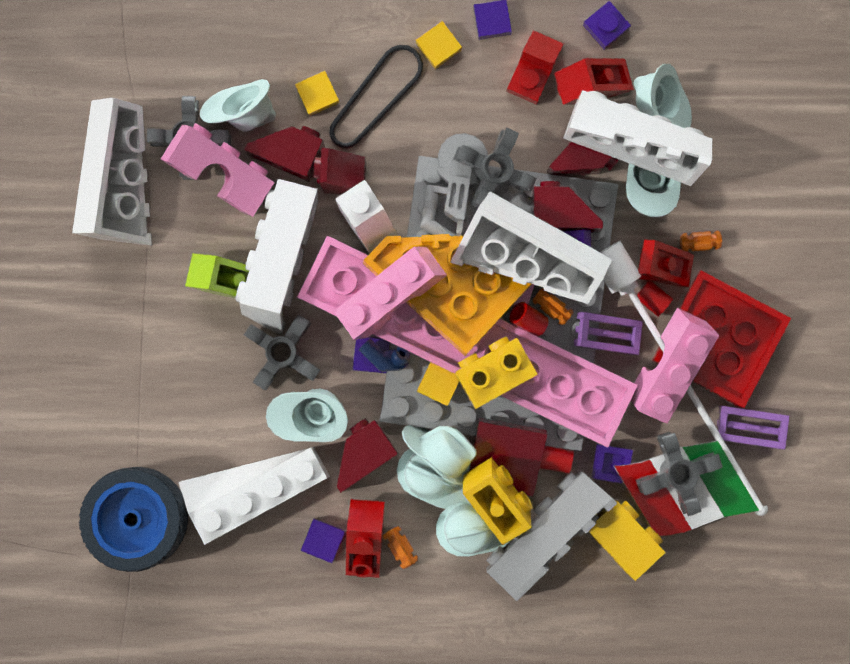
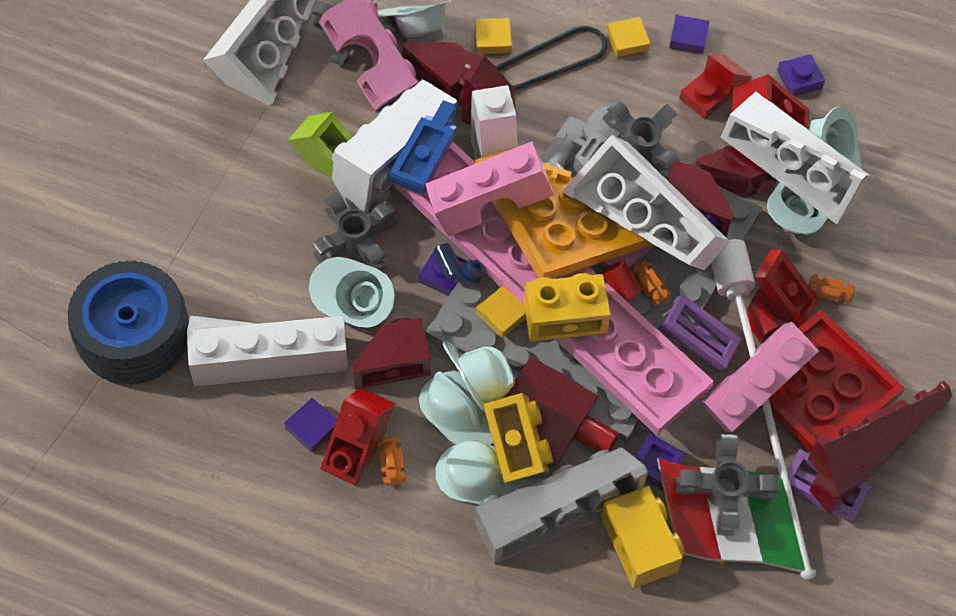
camera: 15 degrees right, 25 degrees down
(314, 262) = (425, 149): none -> blue hinge
(769, 413) = (865, 447): none -> dark red wedge

